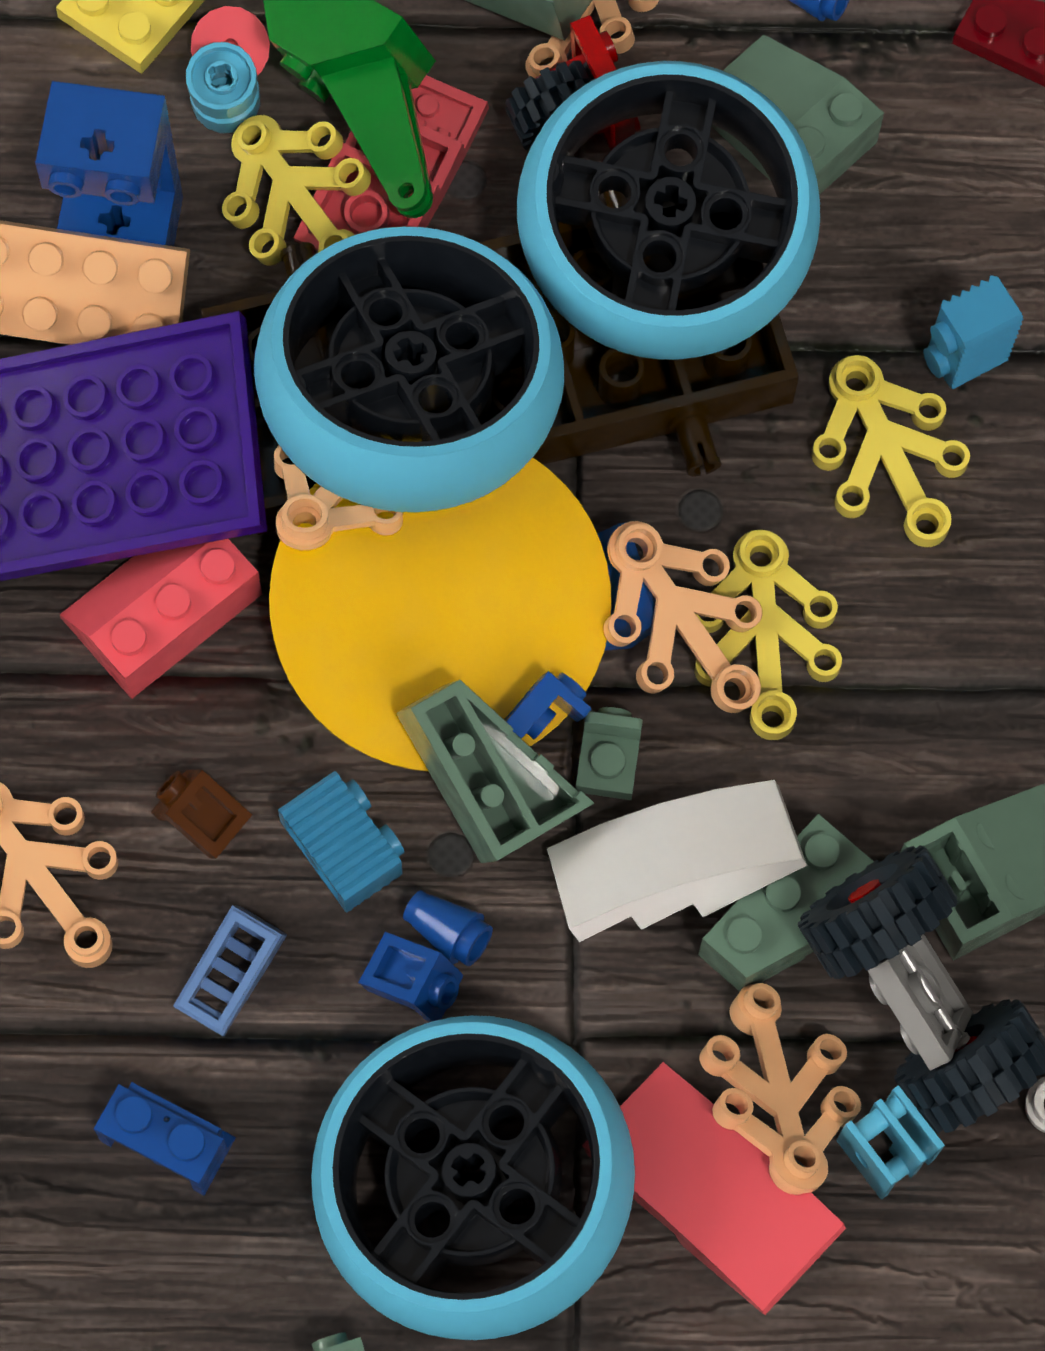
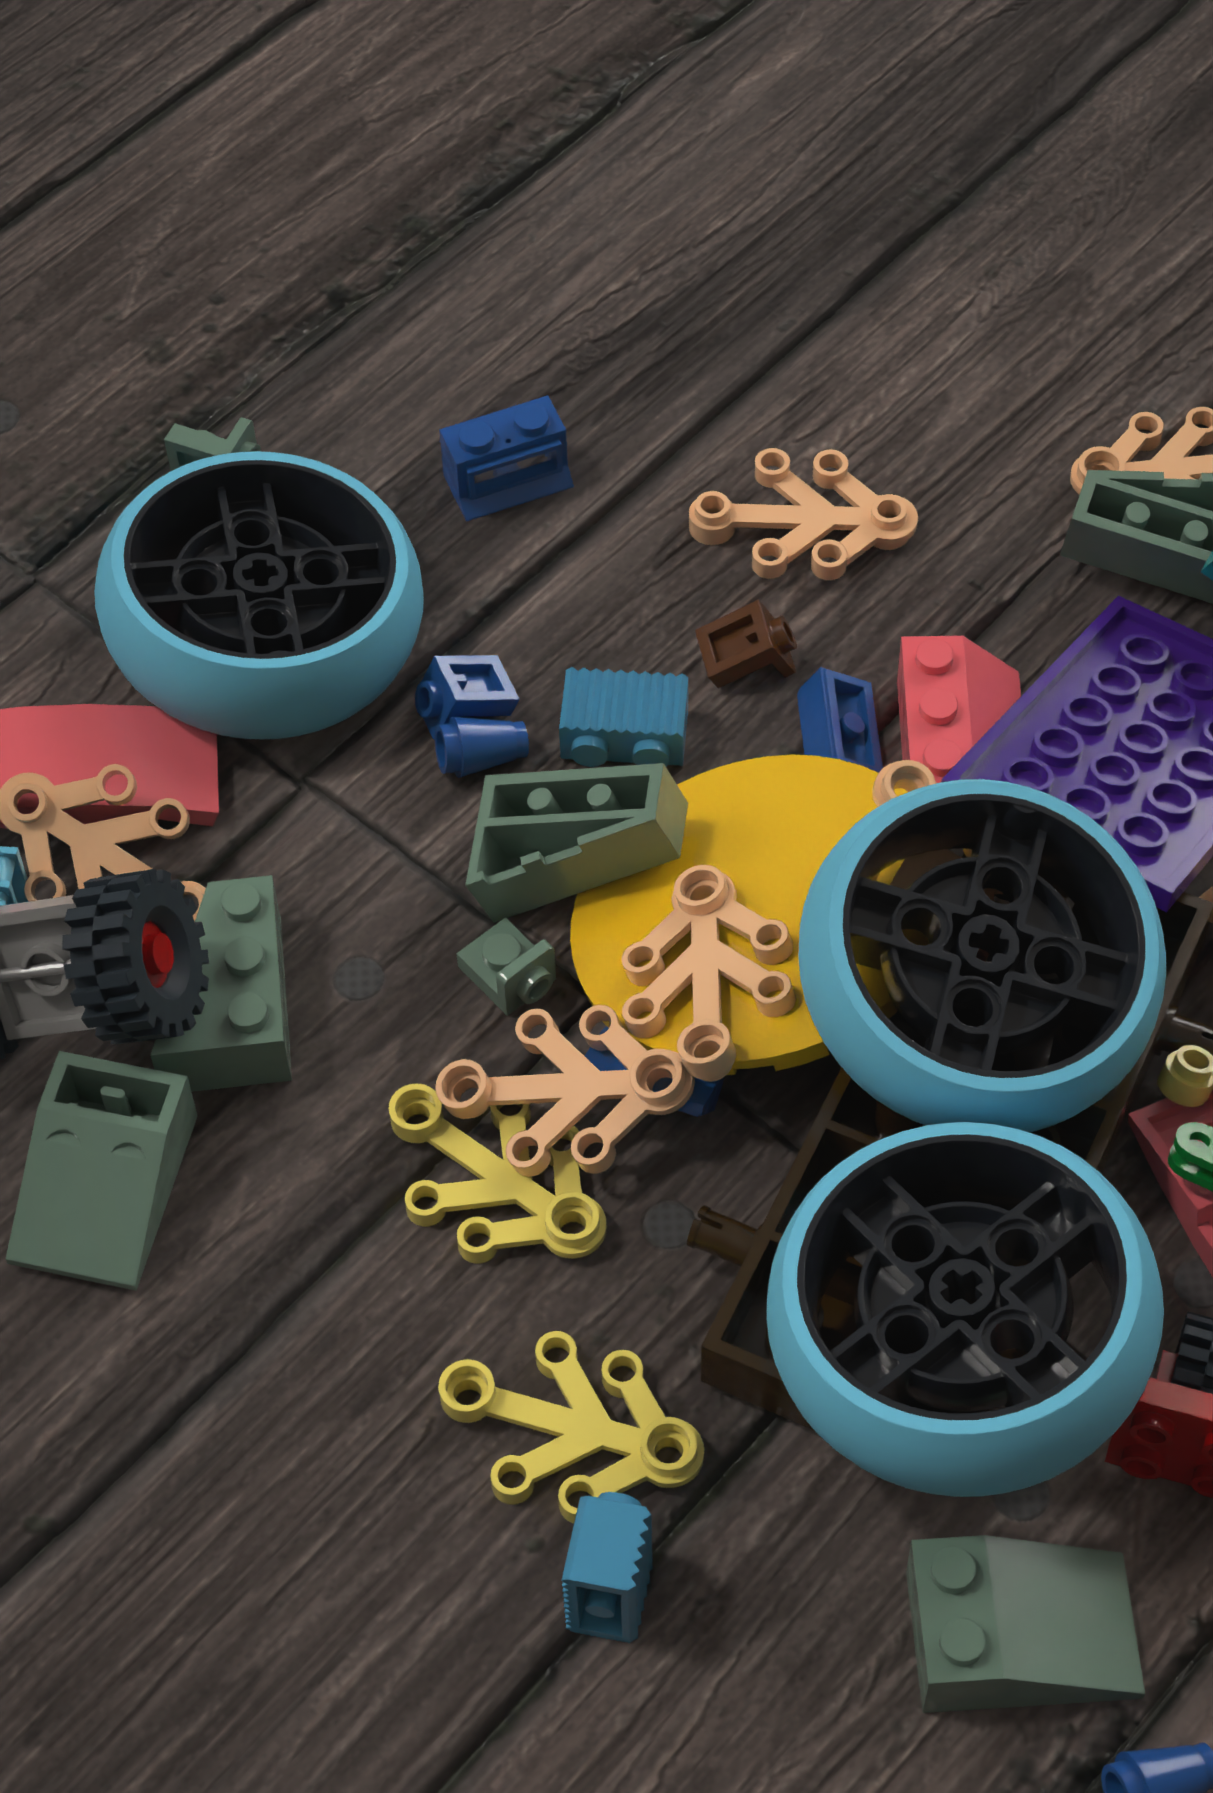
camera: 135 degrees right, 15 degrees down
(218, 697) = (839, 719): none -> blue slope
(260, 960) = (601, 597): medium blue slope -> none
(524, 587) = (701, 902): none -> light nougat plant
(533, 710) = (592, 920): blue bracket -> none
(674, 856) = (359, 920): white slope -> none

